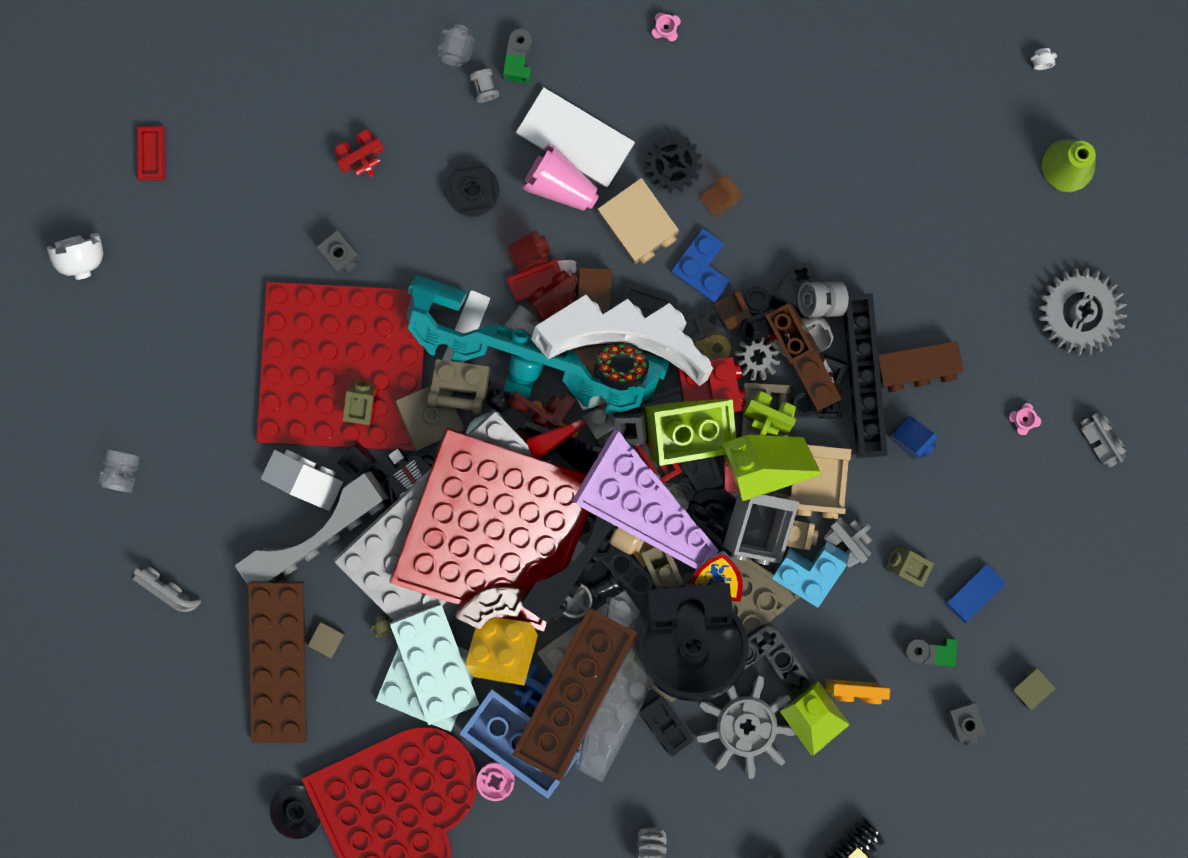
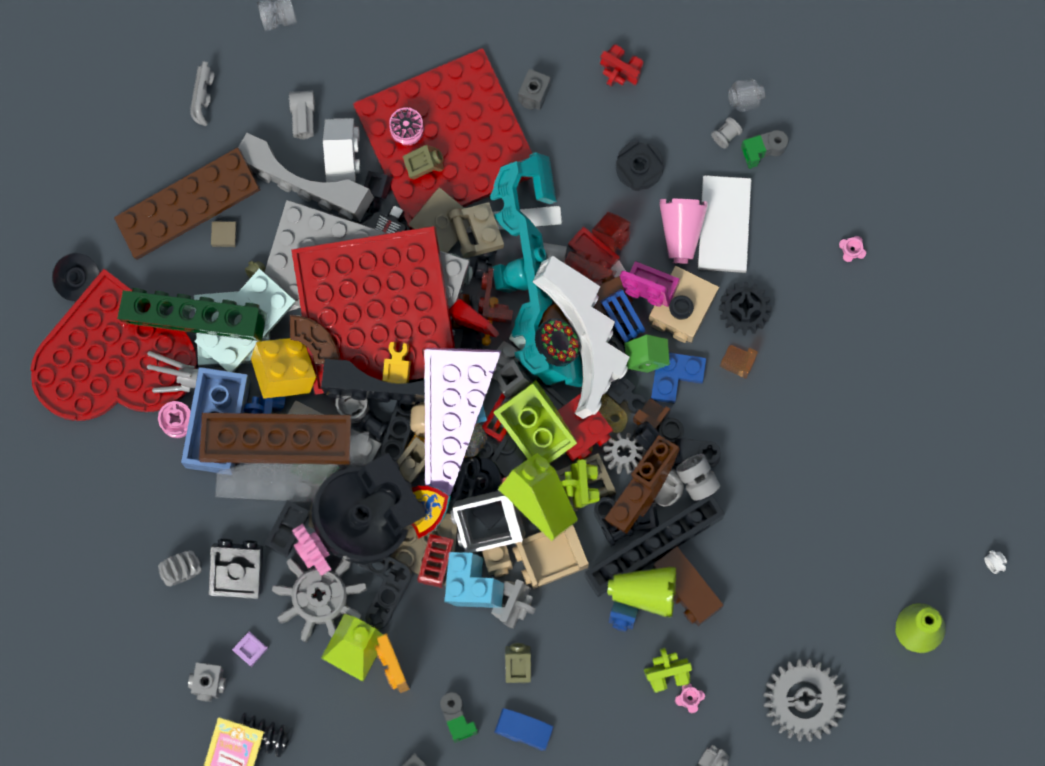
camera: 65 degrees right, 10 degrees down
(235, 495) = (302, 108): none -> light grey piece
(312, 401) = (406, 126): none -> bright pink wheel
(365, 771) = (249, 328): none -> dark green brick
(461, 750) = (185, 376): none -> light grey plant
(566, 538) = (396, 369): none -> yellow plate
(606, 243) = (649, 284): none -> dark pink bracket
(642, 286) = (633, 333): none -> blue tile
(645, 225) = (681, 307): none -> black plate
(671, 282) = (647, 353): none -> bright green piece
(678, 795) = (235, 569): none -> plate
(706, 714) = (311, 550): none -> bright pink gear
(762, 818) = (250, 649): none -> lavender tile
(790, 610) = (432, 580): none -> red slope
(911, 407) = (646, 590): none -> lime cone
(987, 426) = (678, 668): none -> lime hips

